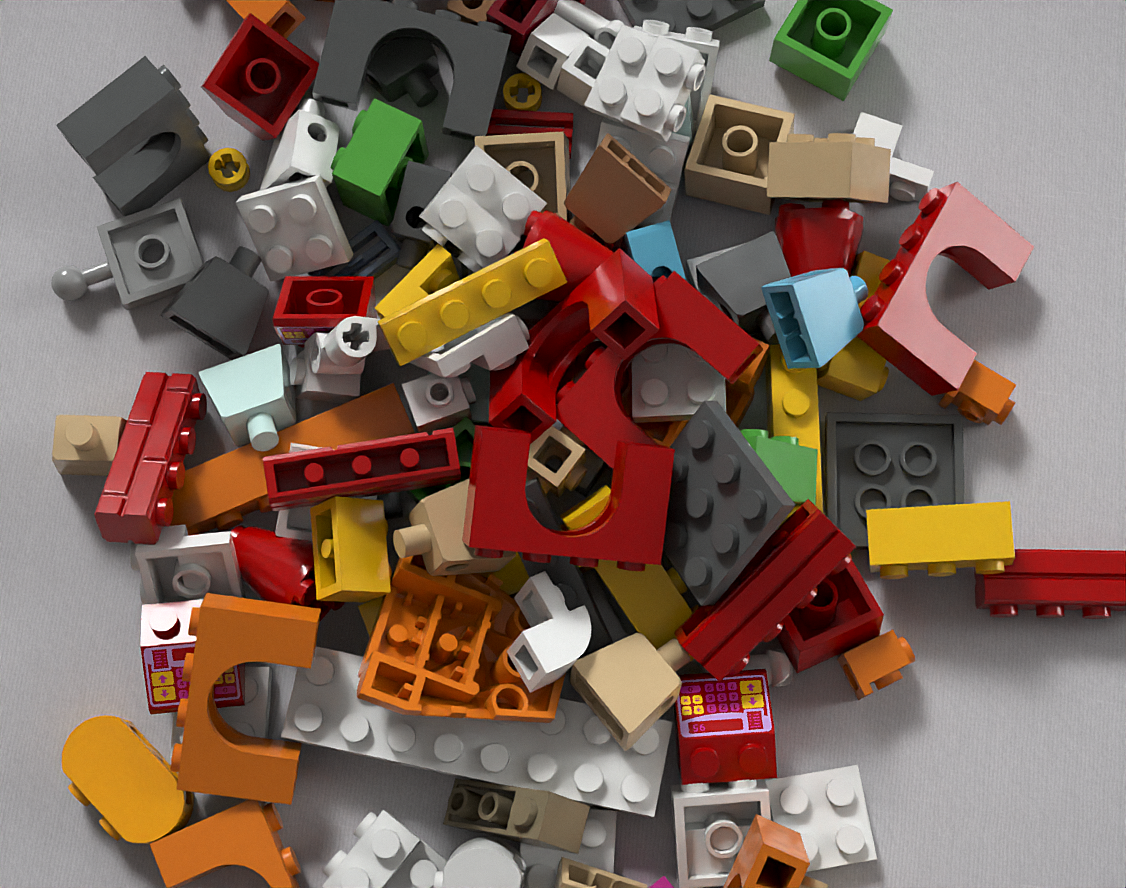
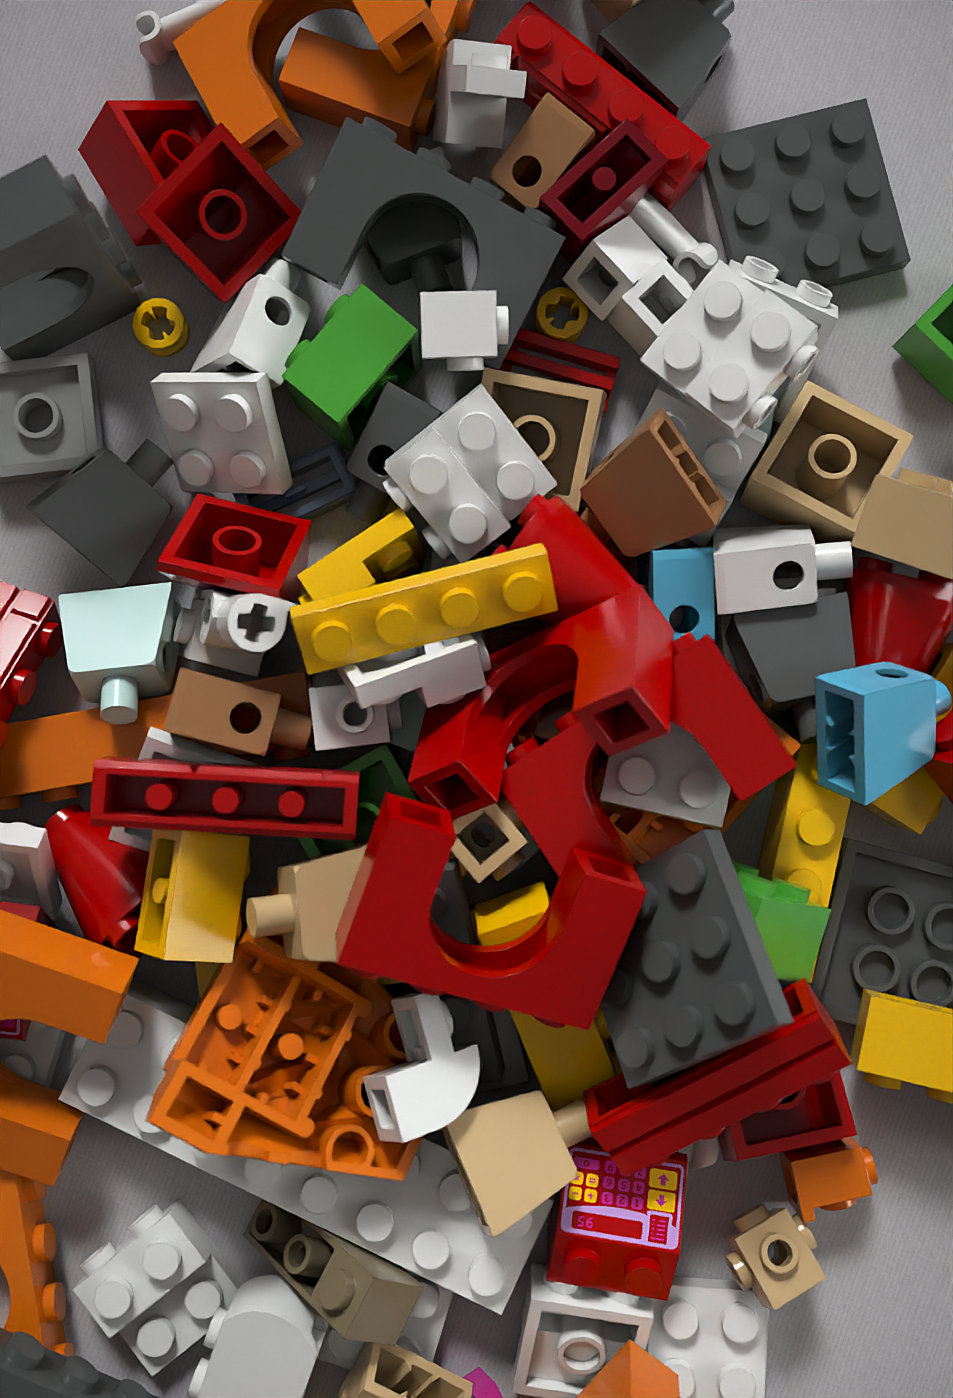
camera: 10 degrees right, 10 degrees up
(190, 48) = (137, 148): none -> red slope
(331, 413) = (204, 707): none -> medium nougat torso
(452, 112) = (462, 328): none -> white brick
(699, 236) = (749, 572): none -> white torso
(850, 730) = (792, 1265): none -> tan brick

